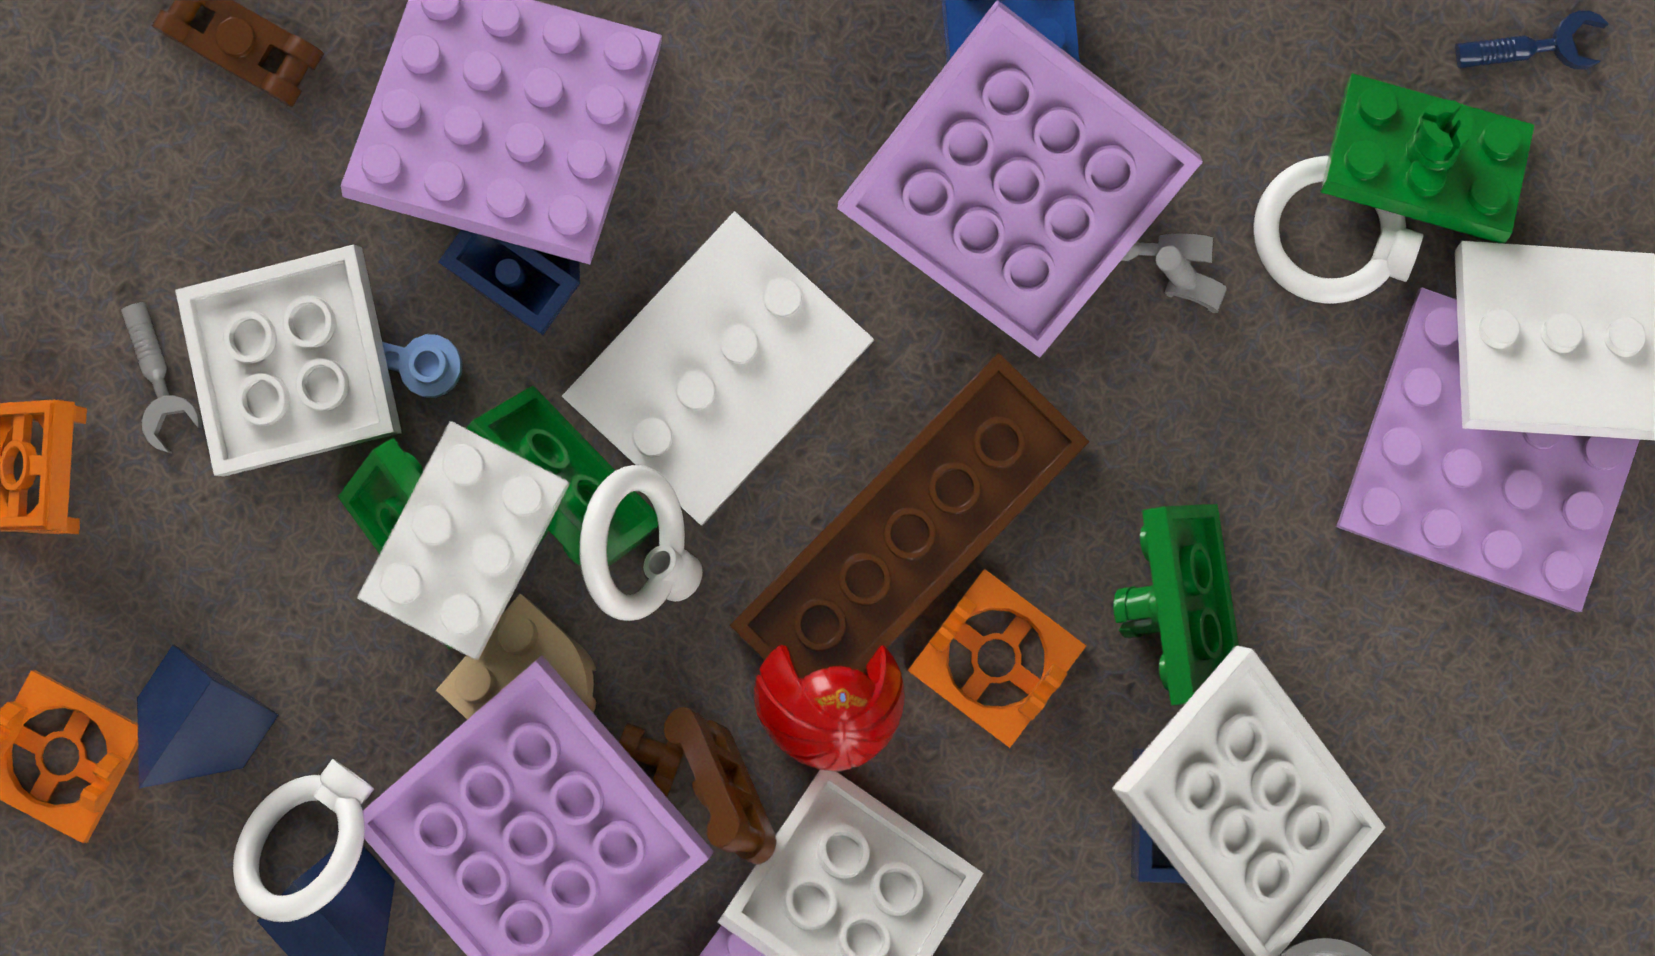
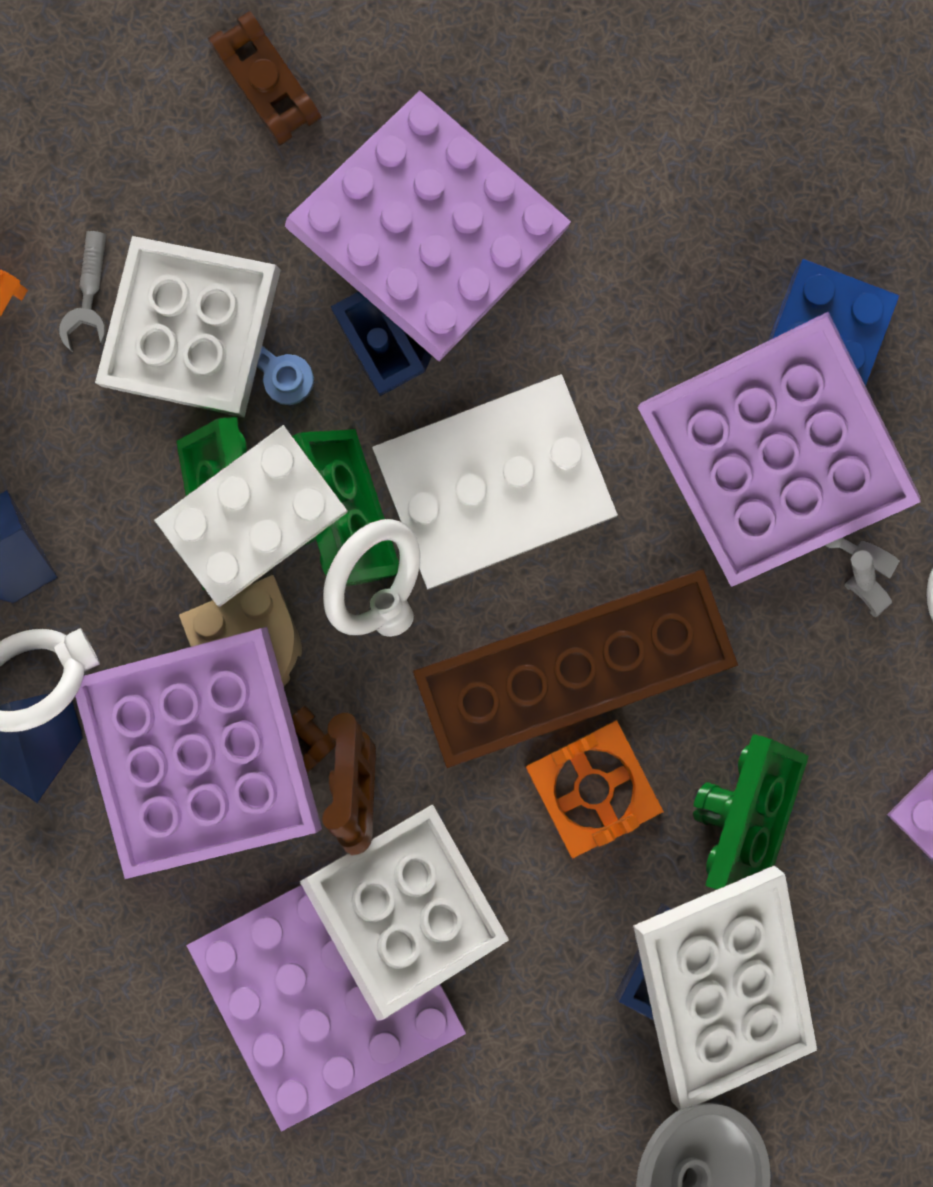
camera: 20 degrees right, 0 degrees up
(832, 715) = (455, 772): red hair -> none

